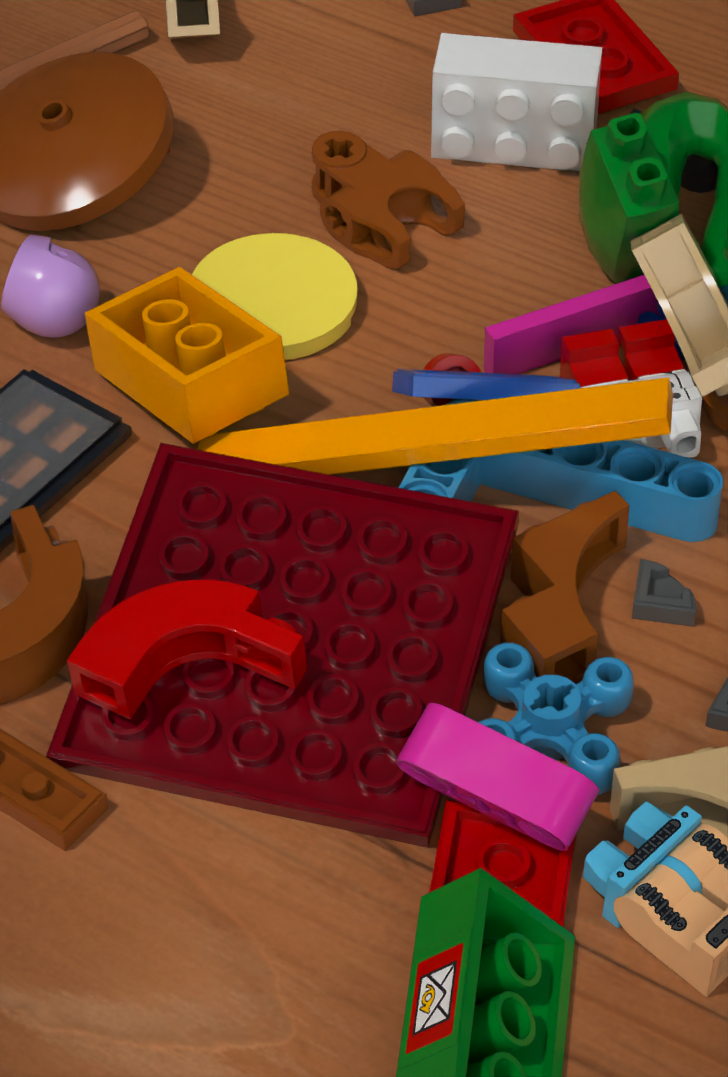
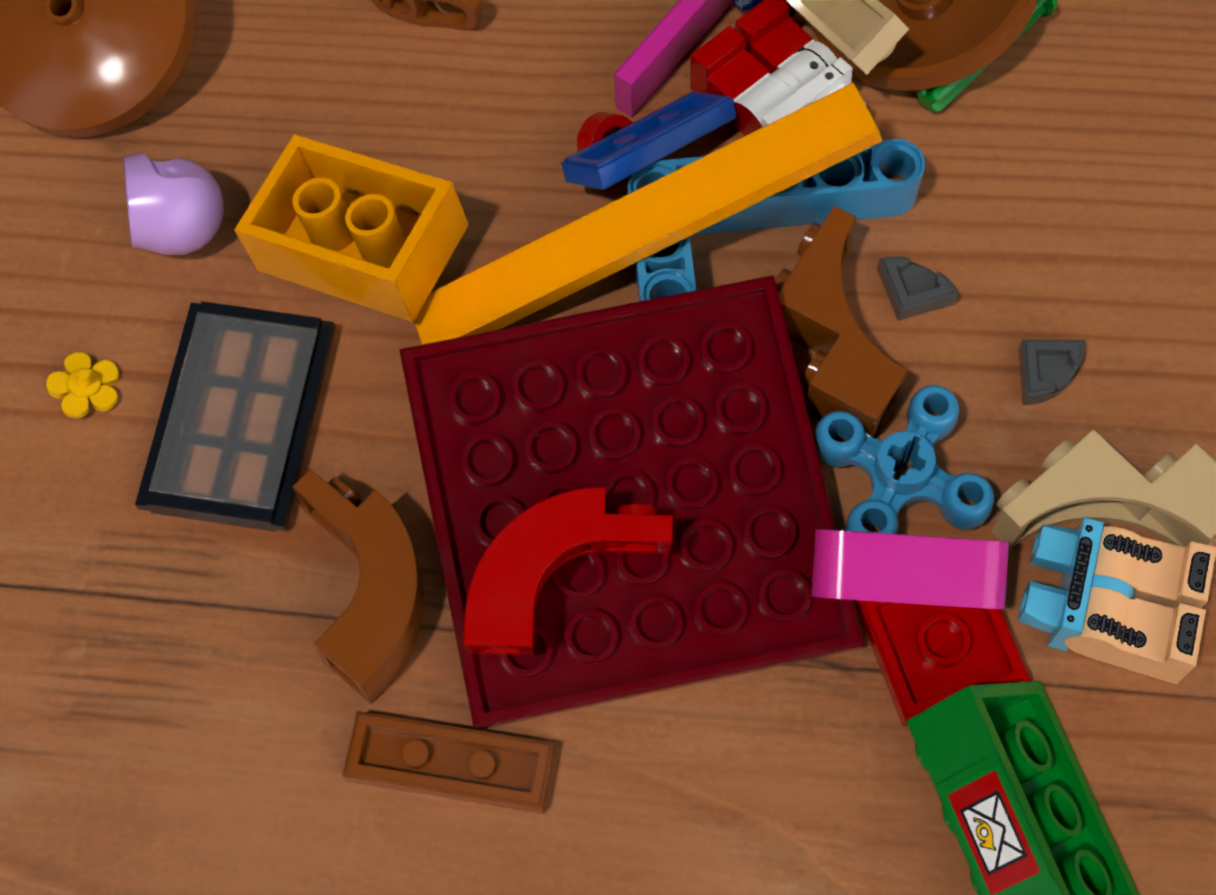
camera: 25 degrees left, 20 degrees up
(288, 285) = (383, 101): light yellow tile -> none

